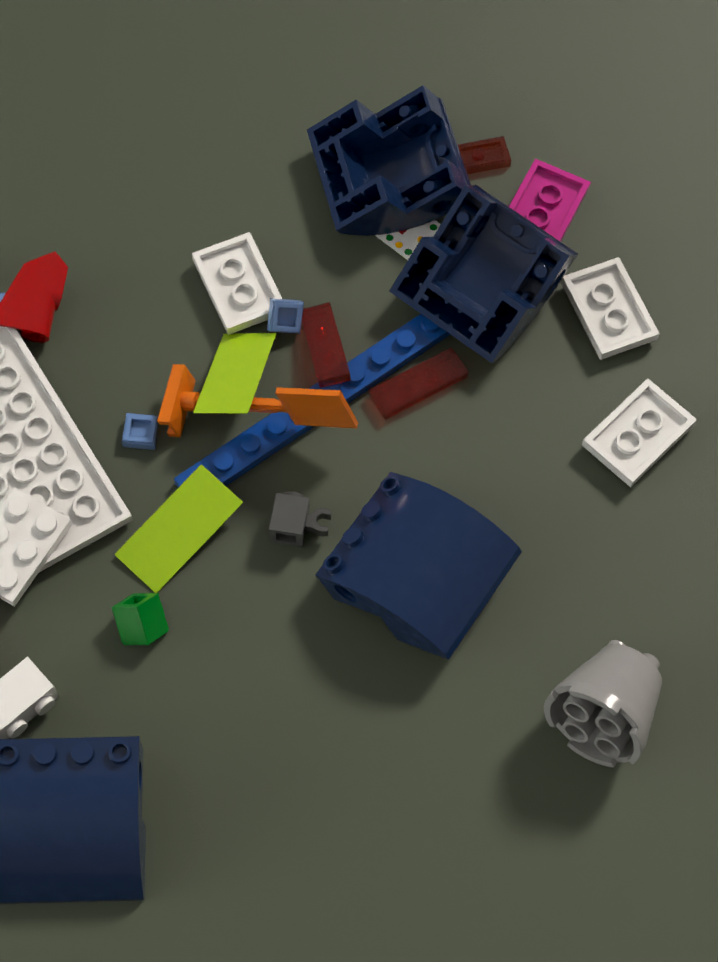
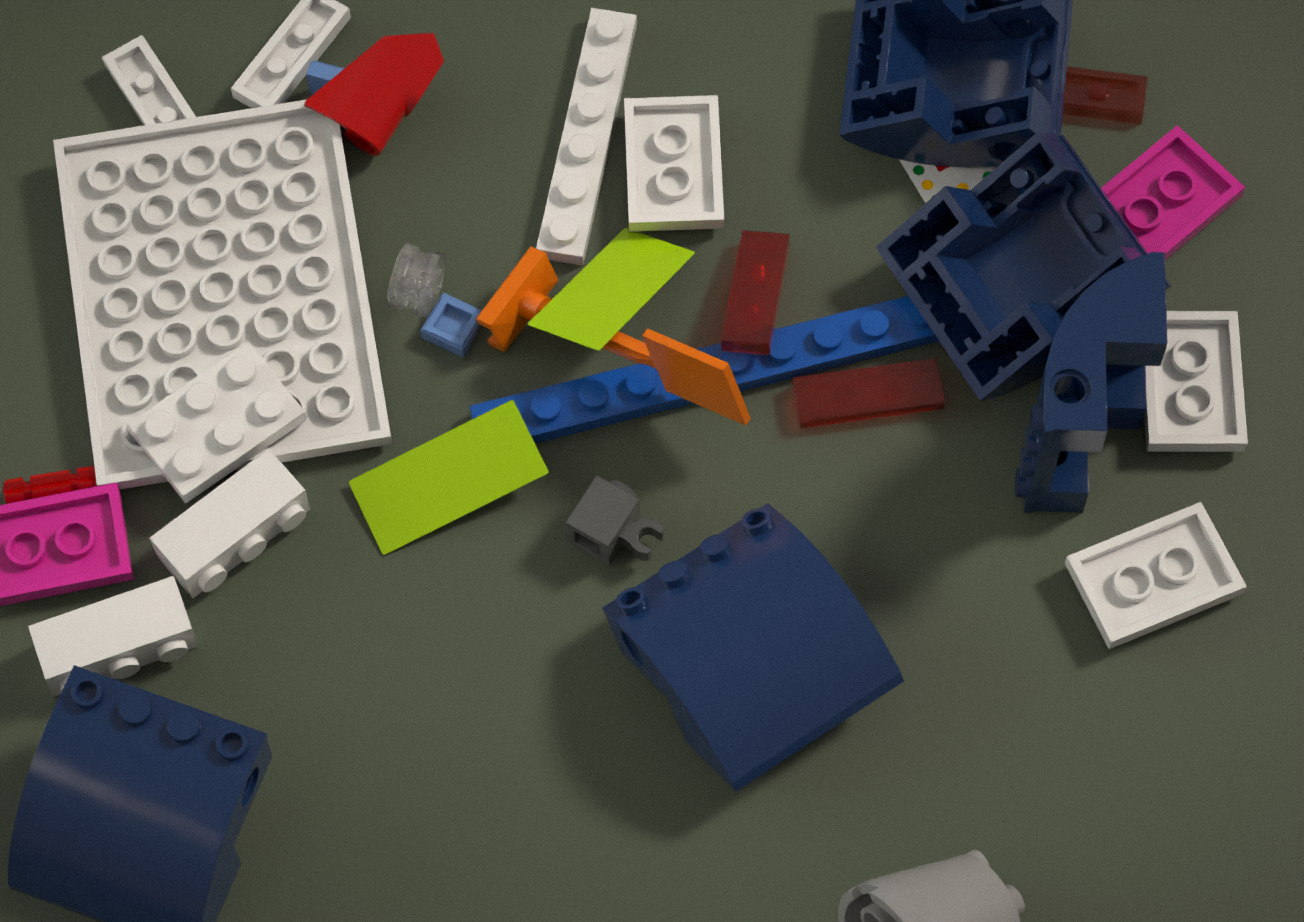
camera: 25 degrees right, 0 degrees up
(50, 609) = (231, 524): none -> white brick
(107, 410) = (416, 280): none -> clear wheel
(140, 619) = (345, 581): green panel -> none
(176, 284) = (586, 136): none -> white plate
(285, 315) = (717, 232): medium blue tile -> none
(559, 328) = (1093, 382): none -> dark blue slope

